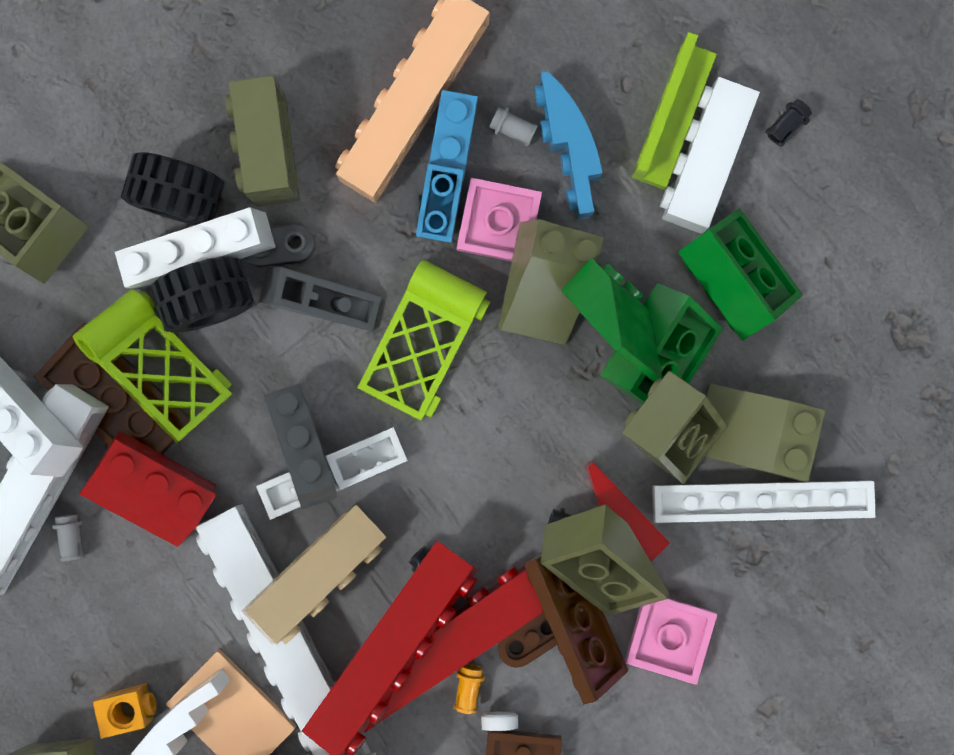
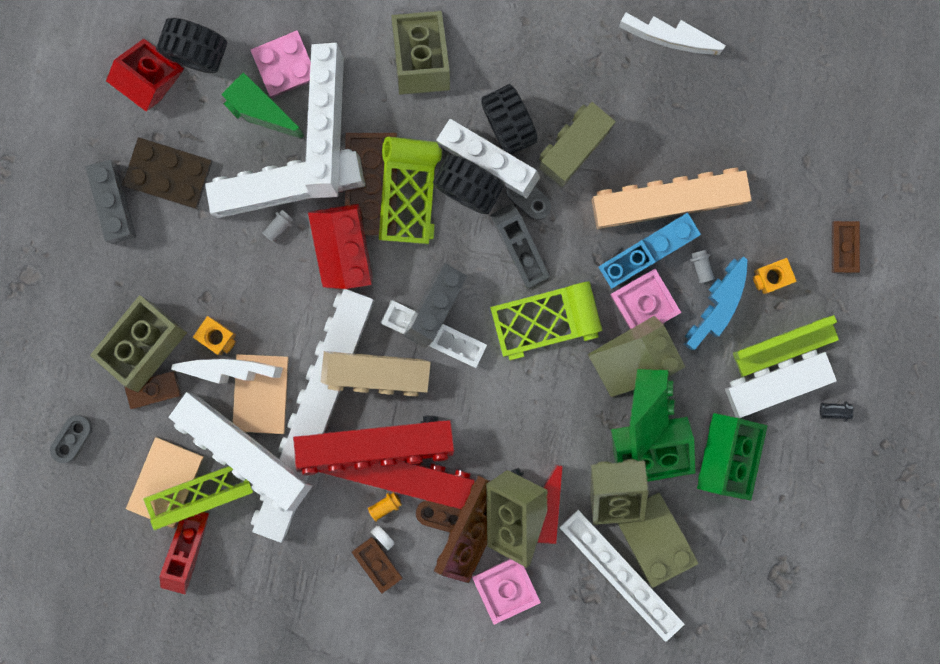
camera: 50 degrees right, 0 degrees up
(594, 46) = (784, 272): none -> light orange brick

